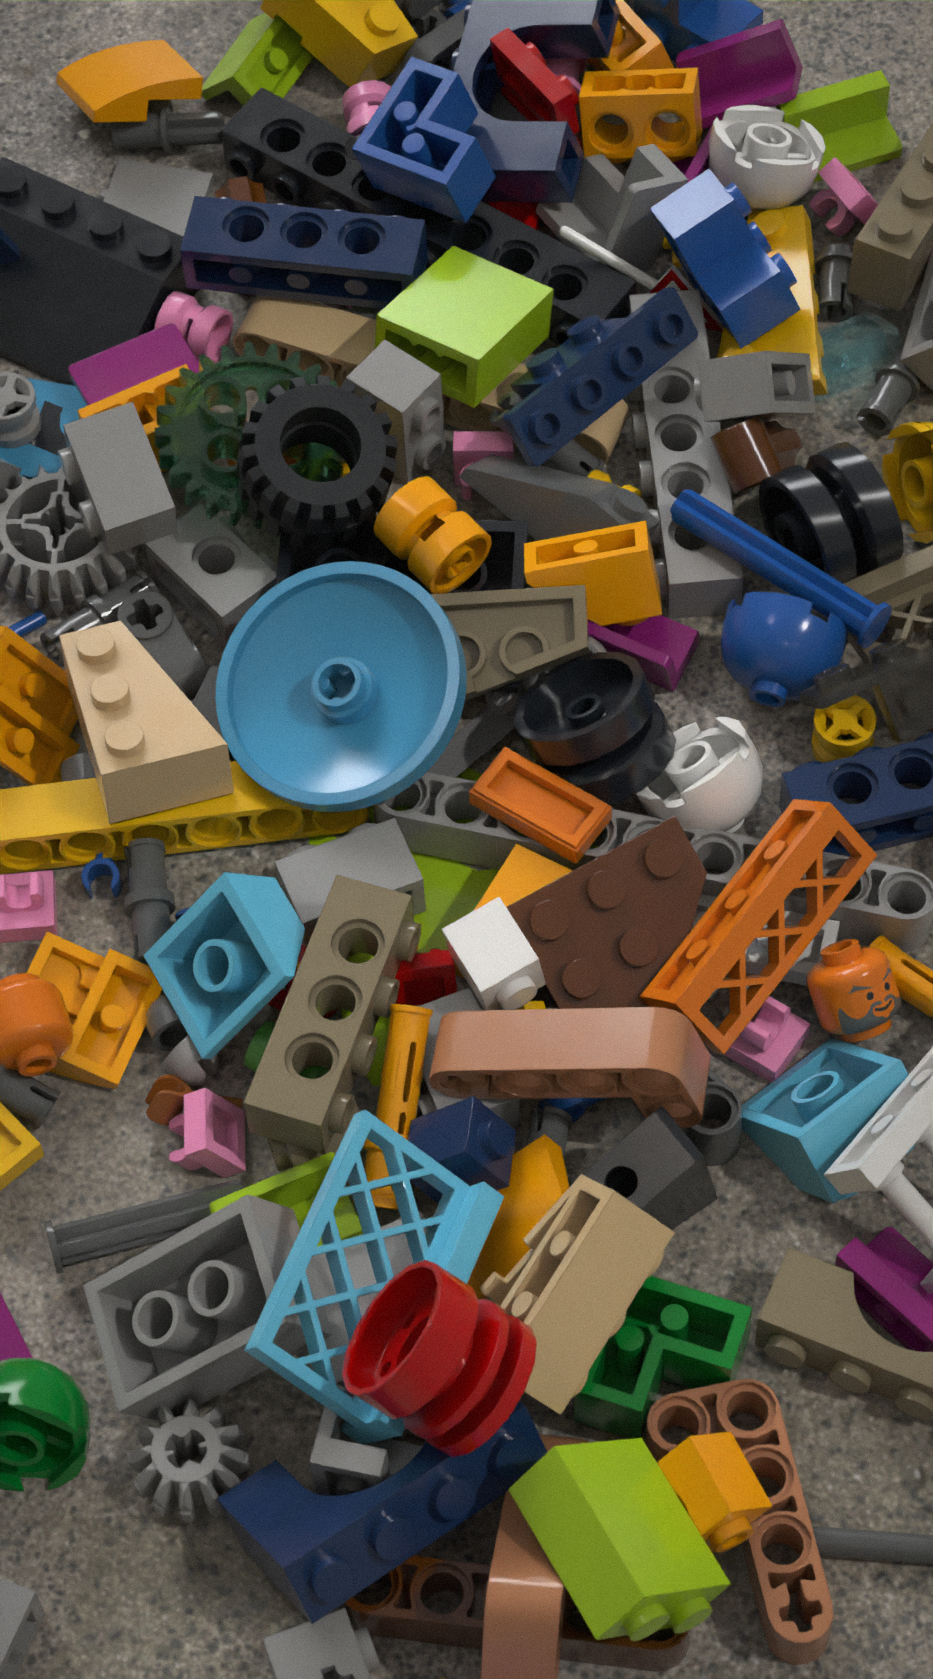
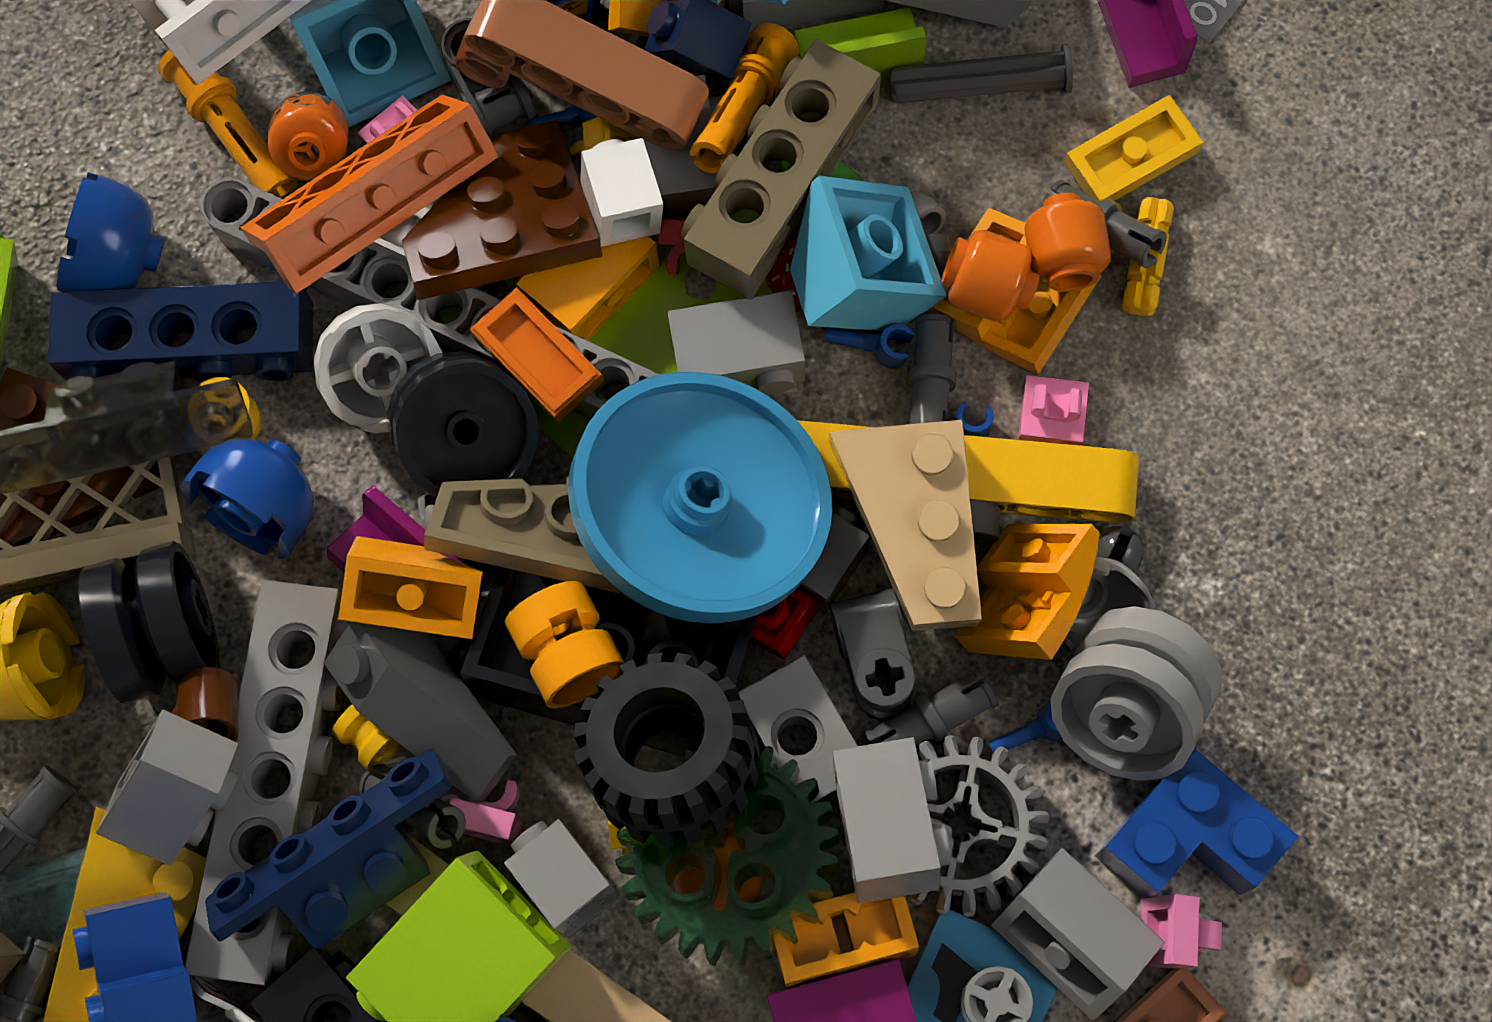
camera: 165 degrees left, 15 degrees up
(101, 969) = (989, 275): none -> orange head
(167, 1099) = (932, 180): dark orange hand -> none
(211, 1134) = (911, 135): bright pink tile -> none
(780, 566) = (220, 568): blue axle -> none

